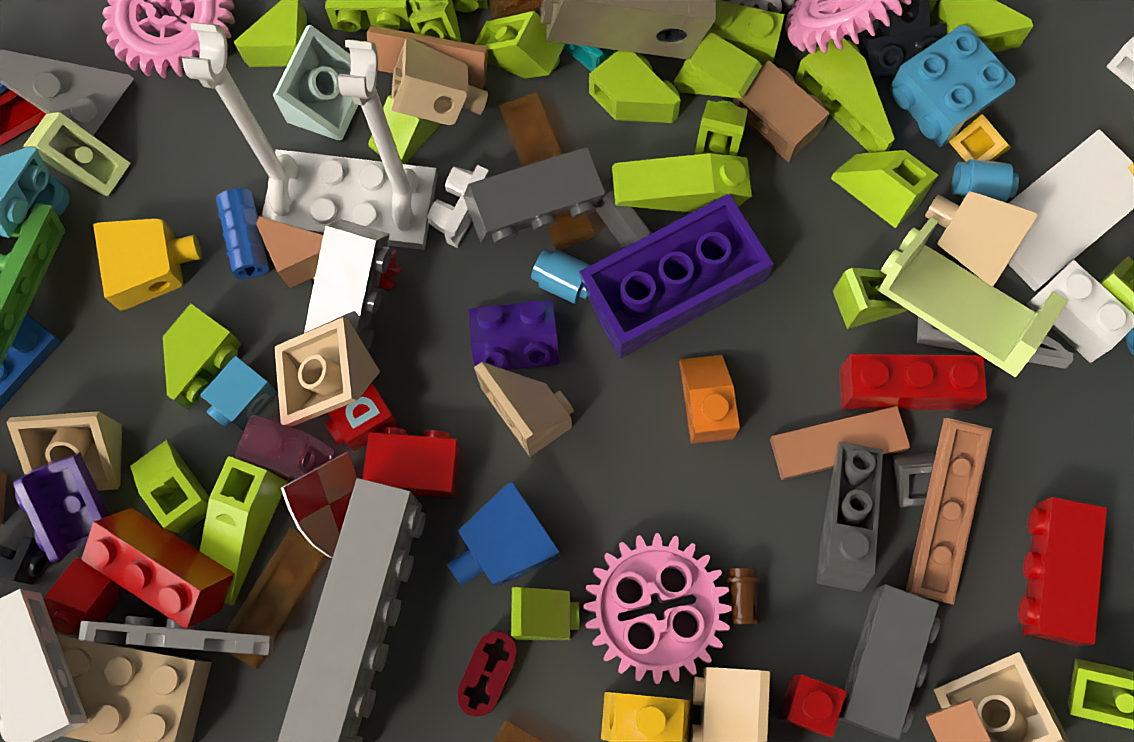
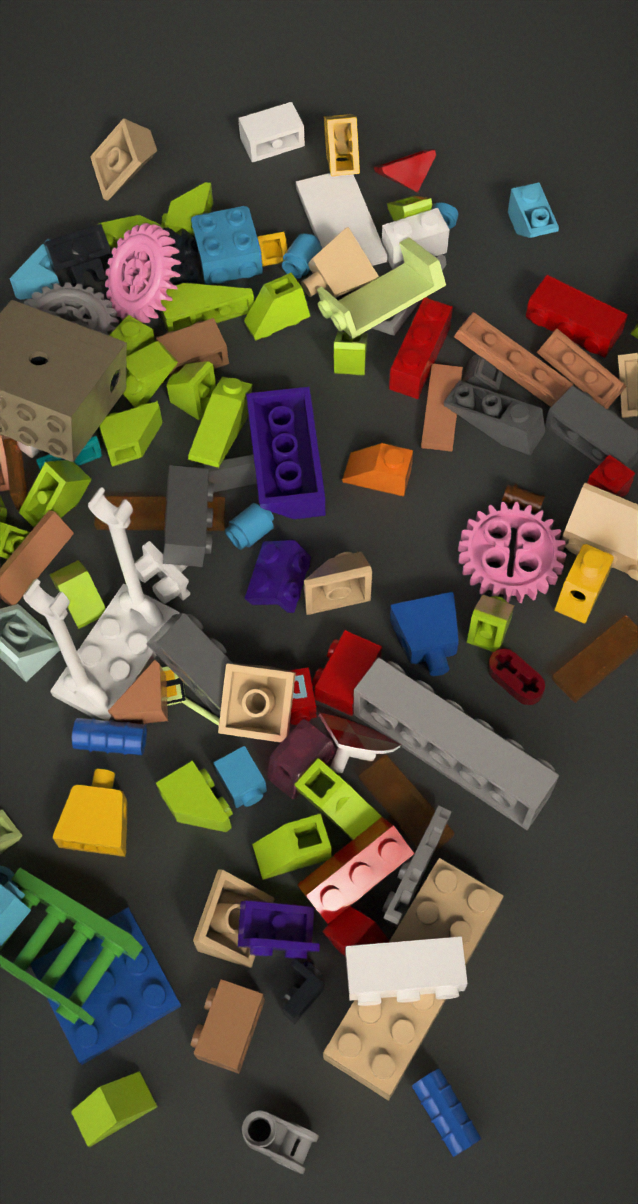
camera: 70 degrees left, 10 degrees down
(433, 85) = (59, 556): tan torso -> none
(980, 608) = (581, 369): none -> nougat tile

